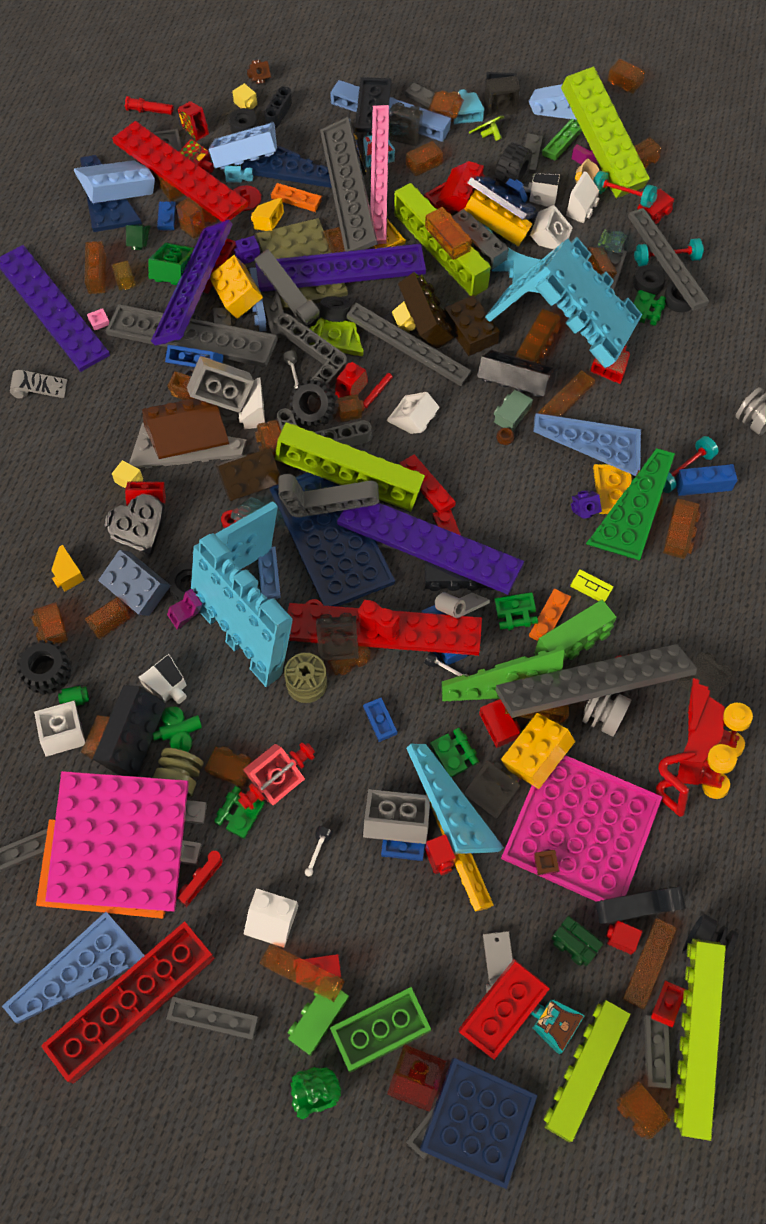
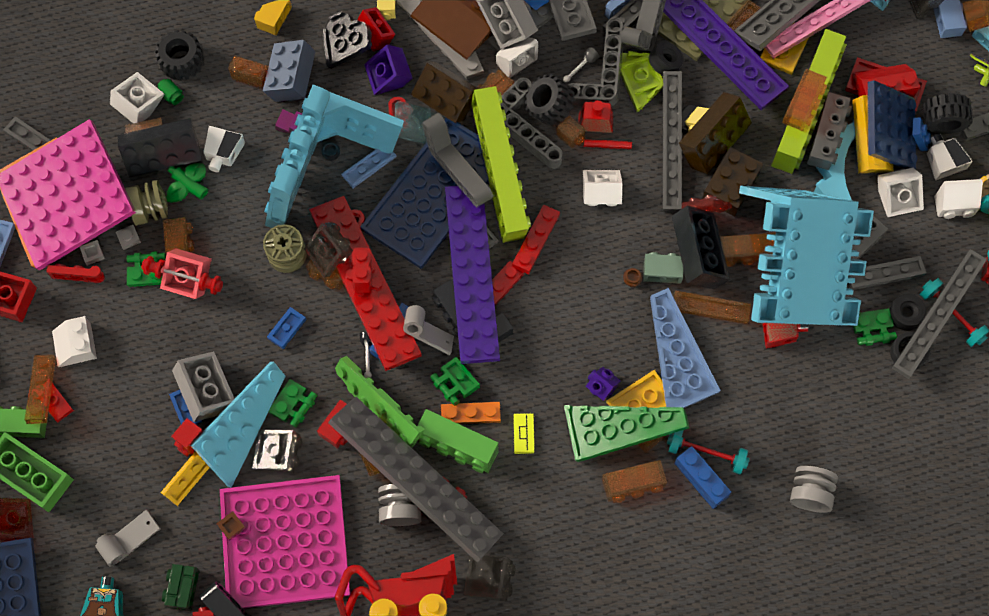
camera: 60 degrees right, 5 degrees up
(49, 624) = (219, 36): clear orange brick -> none
(191, 508) = (388, 70): none -> dark purple slope
(322, 835) = (161, 342): hinge -> none
(424, 158) = (901, 33): clear orange brick -> none
(487, 343) = (709, 204): none -> clear red plate
(503, 1009) = (90, 556): red plate -> none
(538, 750) = (326, 467): yellow brick -> none
(601, 262) = (880, 253): clear orange brick -> none
(612, 241) = (928, 253): clear light blue plate -> none

